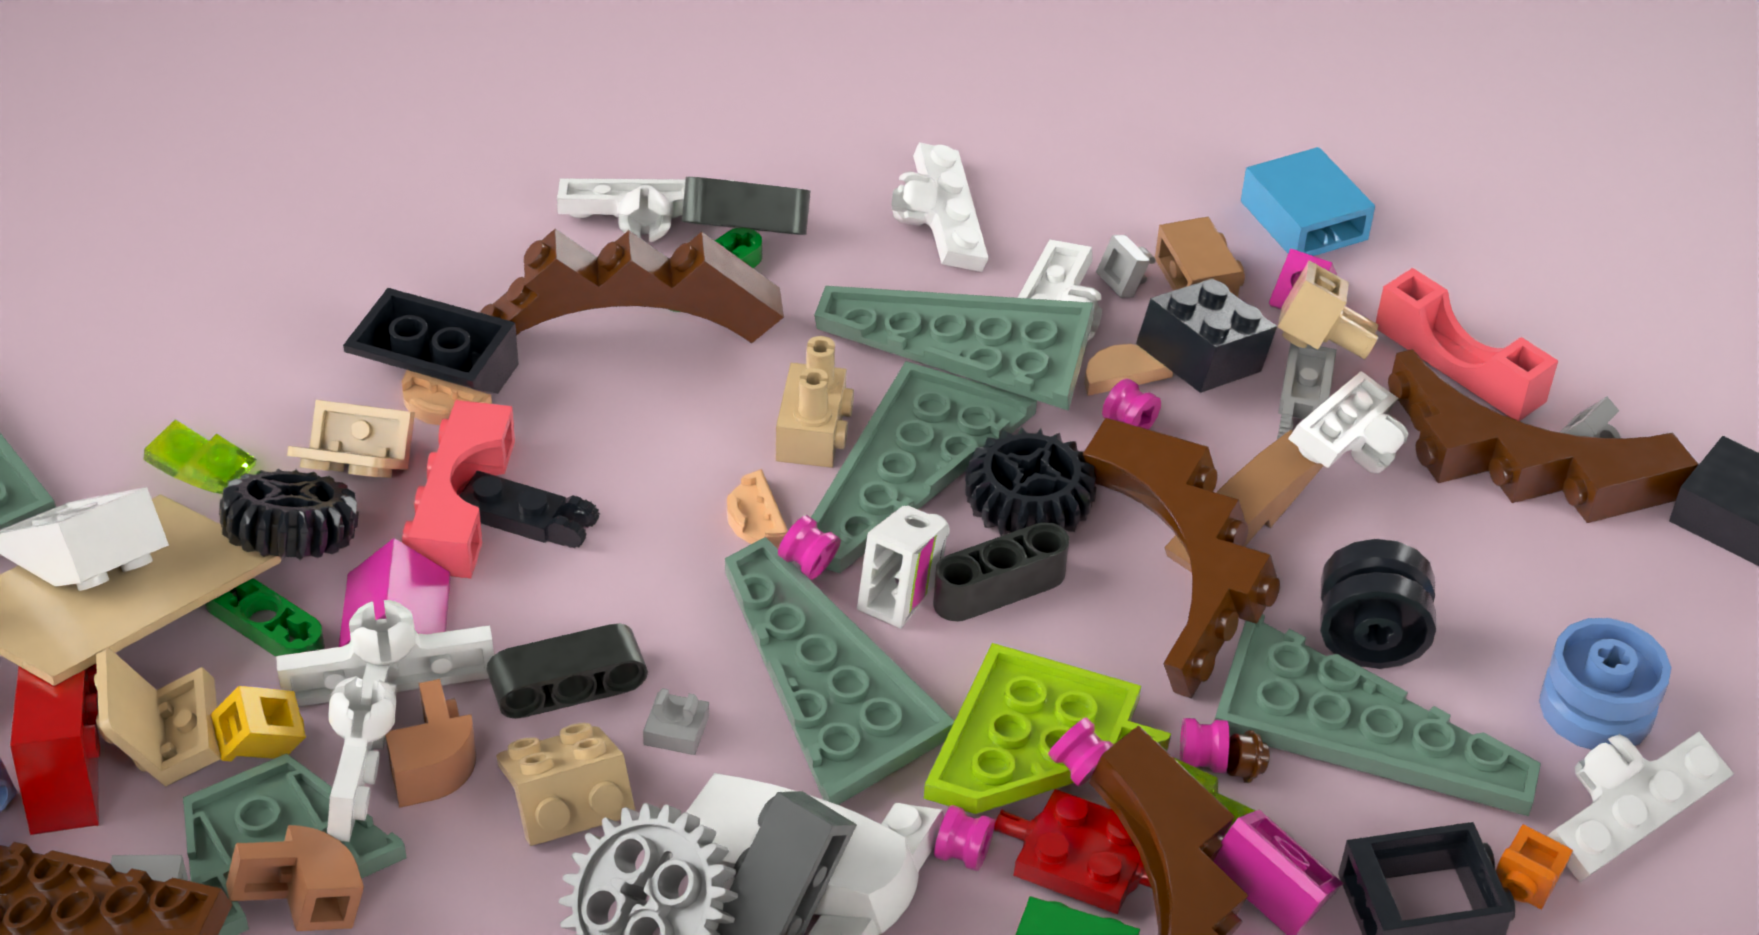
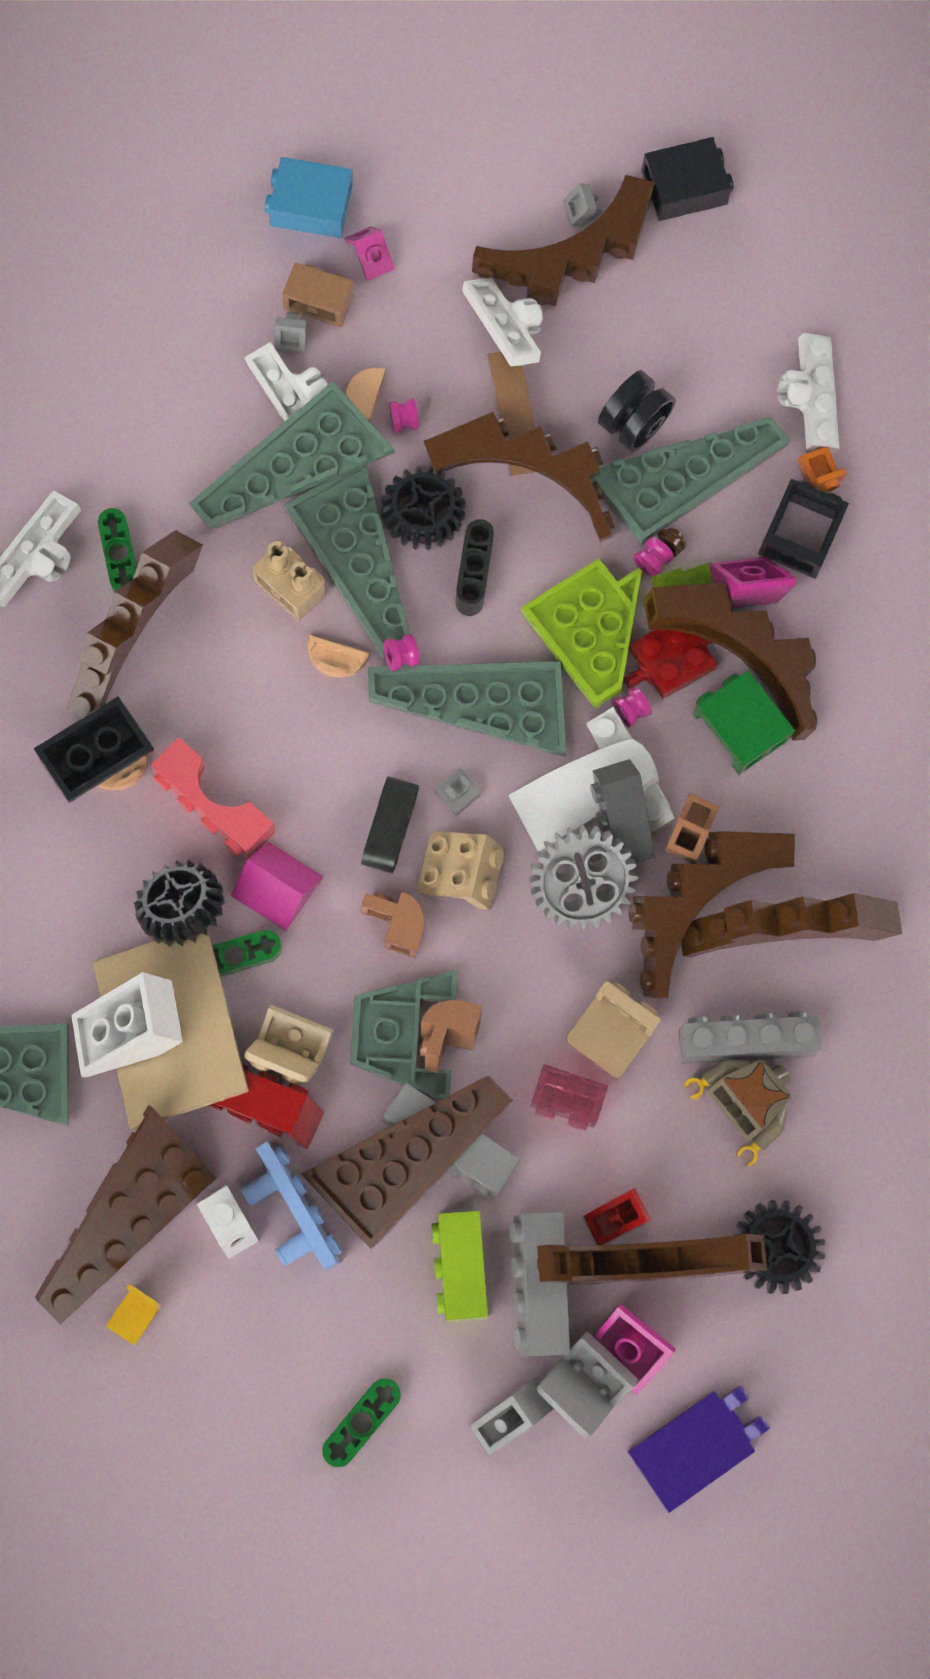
camera: 60 degrees left, 30 degrees up
(196, 460) = (78, 927): clear neon green slope -> none
(258, 723) = (327, 1000): yellow brick -> none
(359, 435) = (141, 838): tan bracket -> none
(362, 715) = (384, 951): white plate -> none
(412, 656) = (322, 909): white plate -> none
(530, 510) = (247, 775): black hinge -> none
(746, 205) = (92, 502): pearl dark grey beam -> none
(902, 548) = (440, 611): white torso -> none
(943, 201) = (161, 390): white plate -> none
(1079, 751) = (636, 620): dark pink wheel -> none
(1206, 335) = (384, 337): black piece -> none
(1305, 383) = (452, 317): light grey hinge -> none
(1318, 313) = (414, 267): tan brick -> none
(1420, 318) = (518, 215): coral arch -> none
(1604, 682) = (749, 348): medium blue wheel -> none

